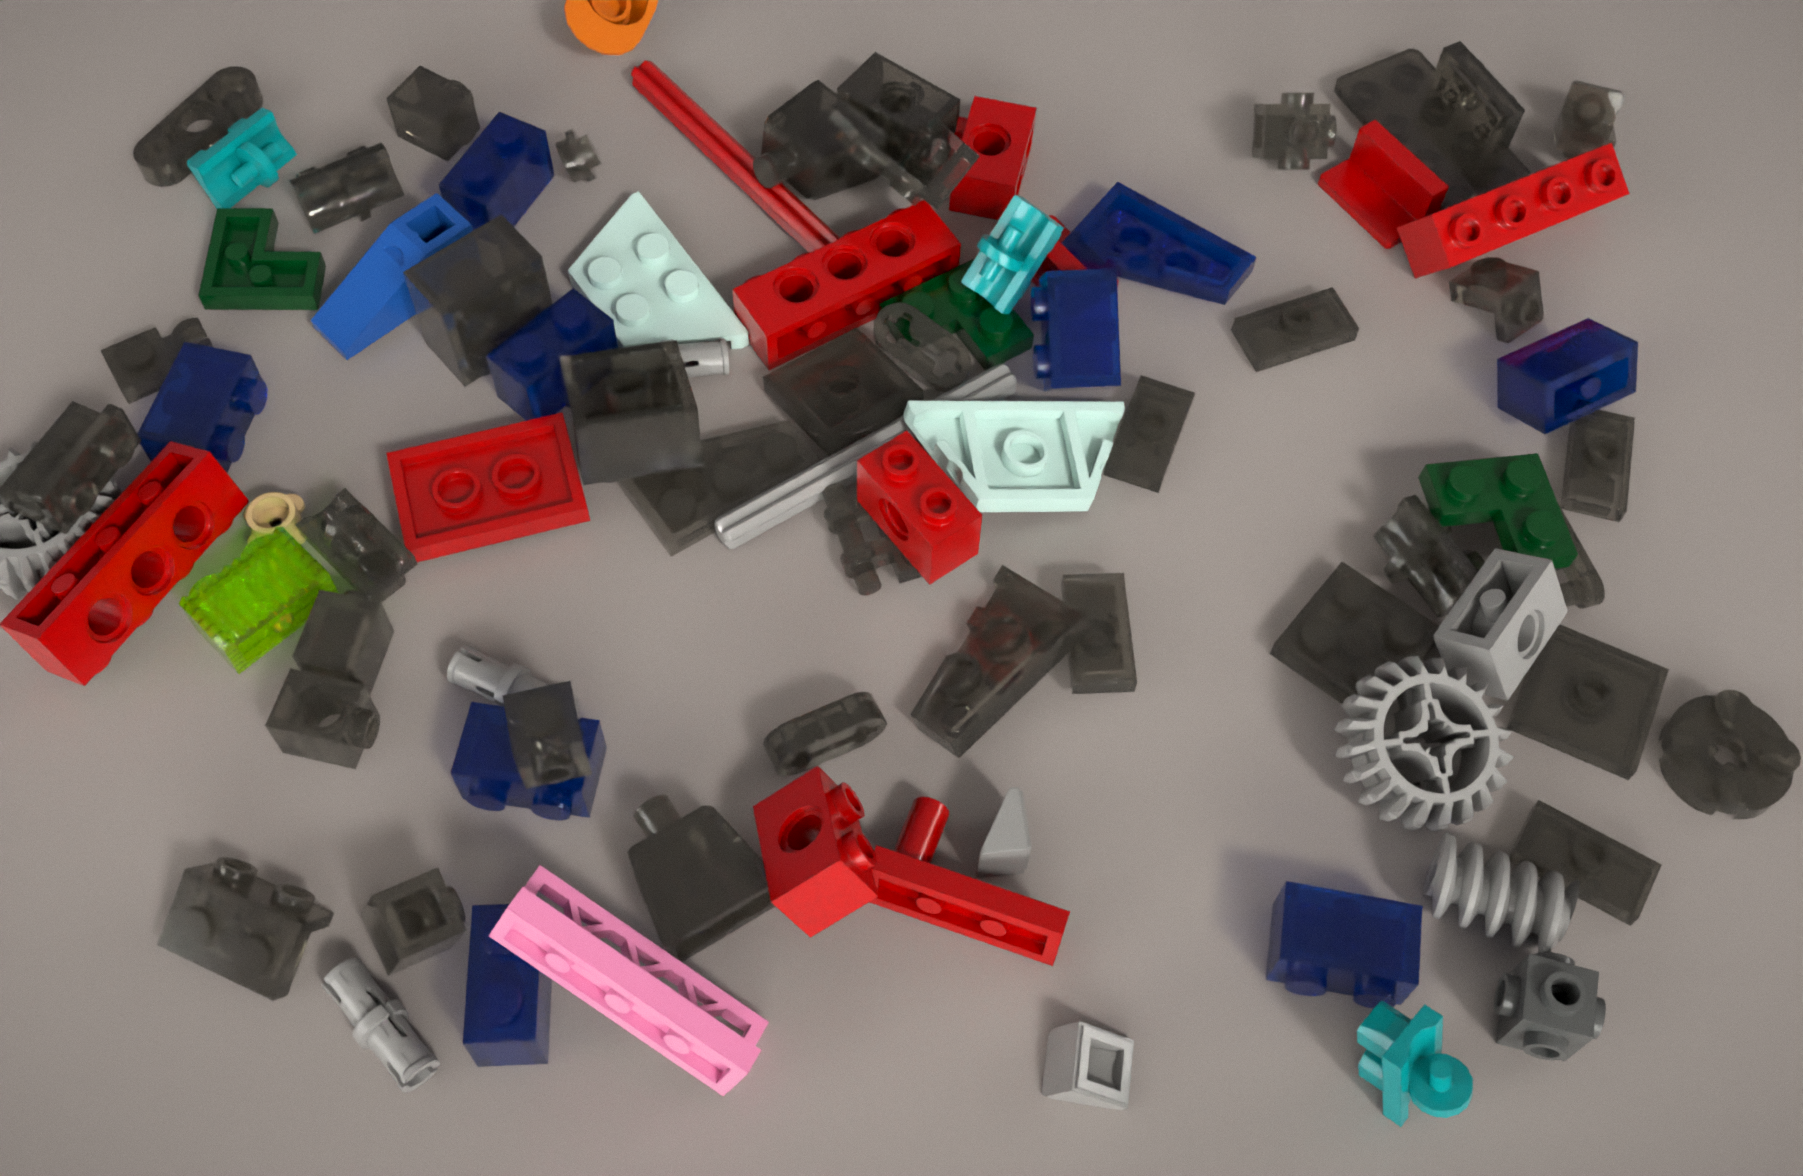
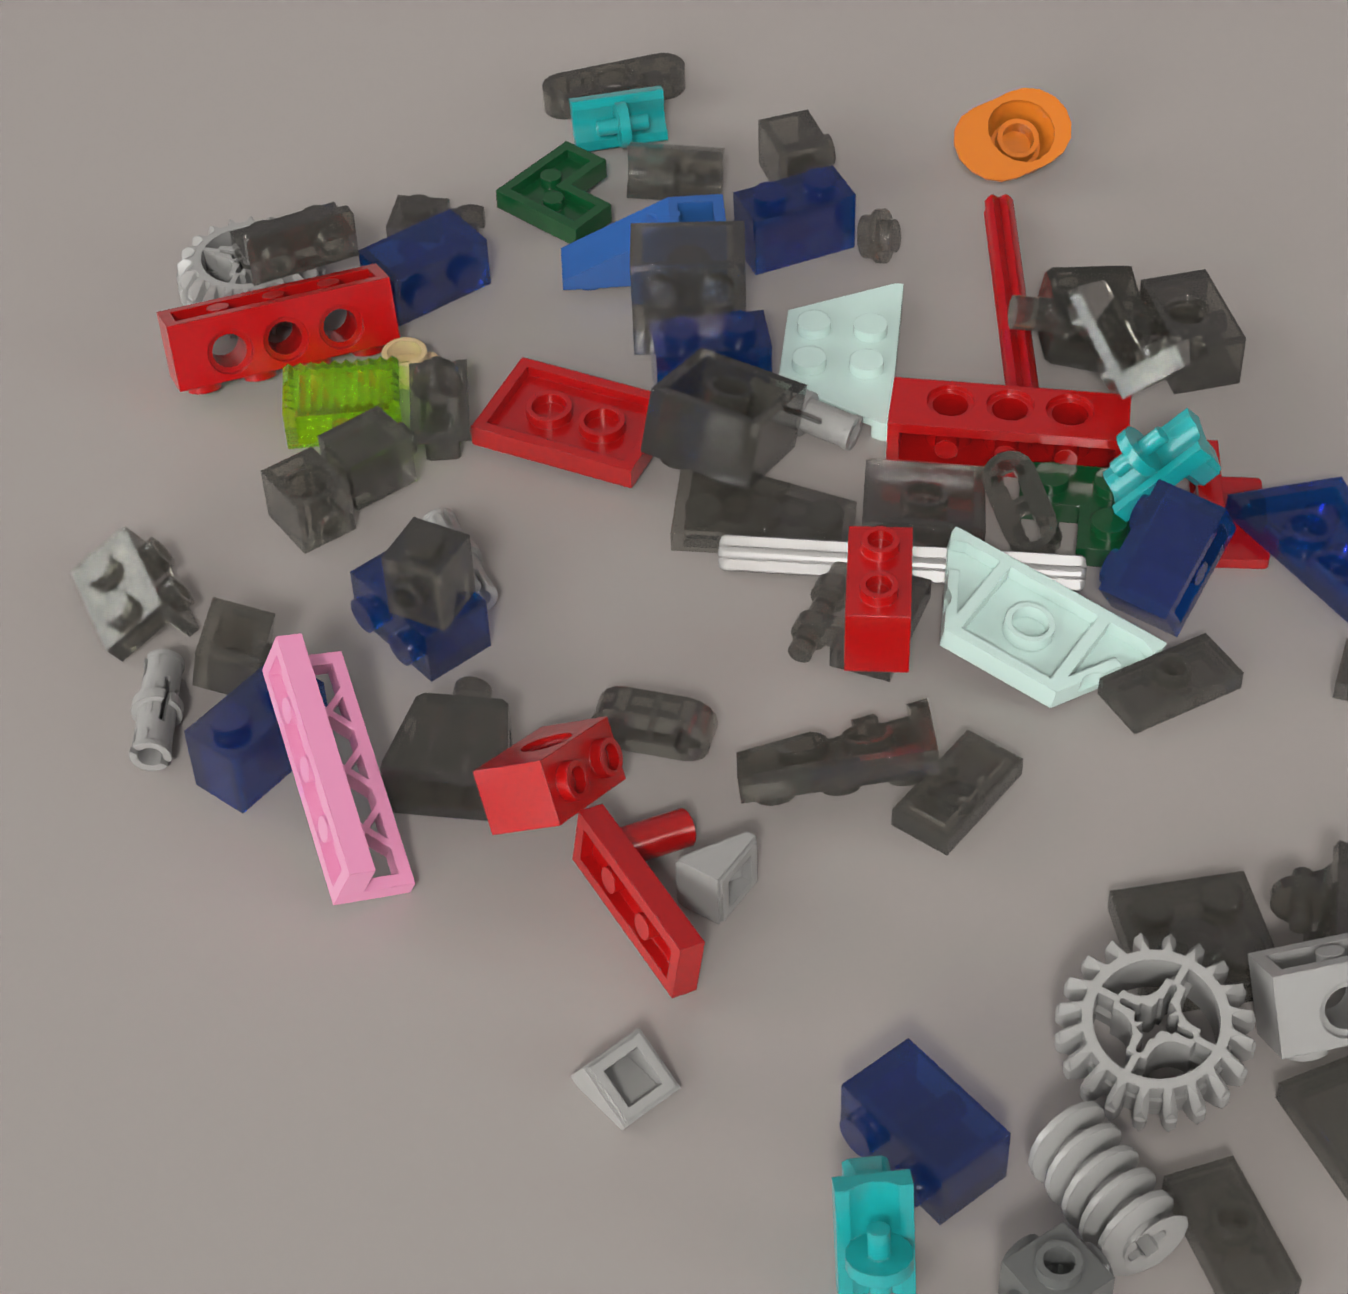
camera: 45 degrees right, 15 degrees down
(1003, 139) = (1247, 401): red brick -> none

